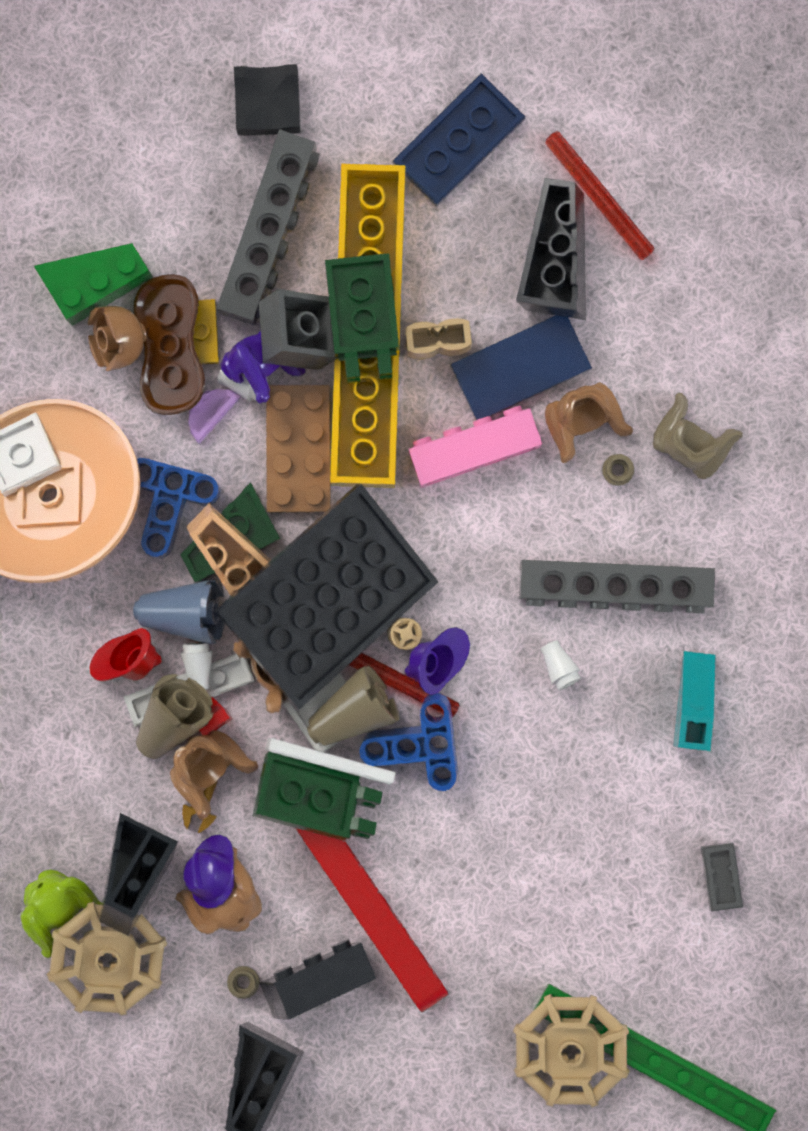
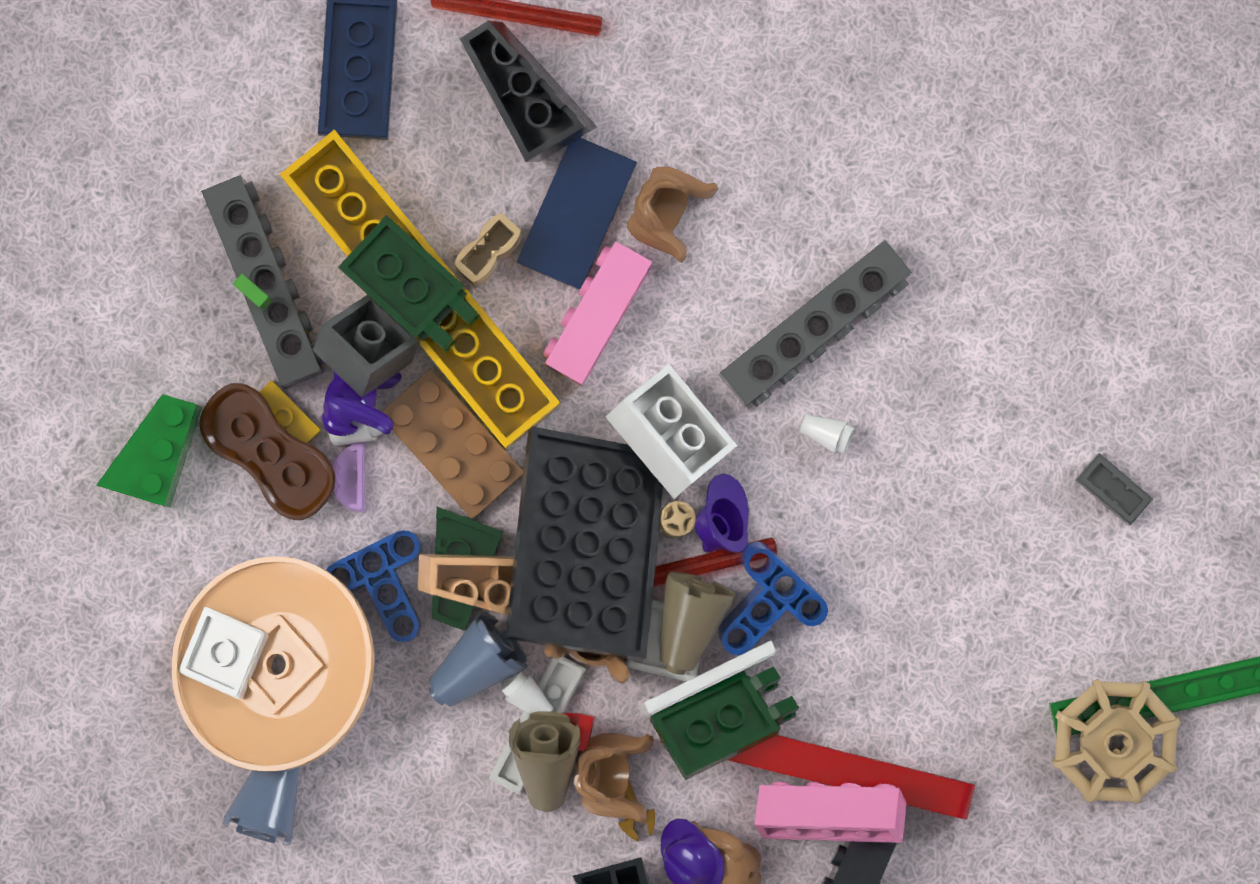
camera: 40 degrees left, 0 degrees up
(116, 337) = (217, 484): medium nougat cylinder -> none
(126, 657) = (460, 743): red piece -> none
(252, 227) = (252, 292): none -> bright green tile
(267, 100) = (168, 174): black brick -> none
(333, 926) = (831, 812): none -> bright pink brick
(453, 570) = (671, 431): none -> white brick
(627, 465) = (737, 217): dark tan plate -> none
(691, 444) = (775, 153): dark tan hair -> none
(695, 702) = (966, 364): teal slope -> none

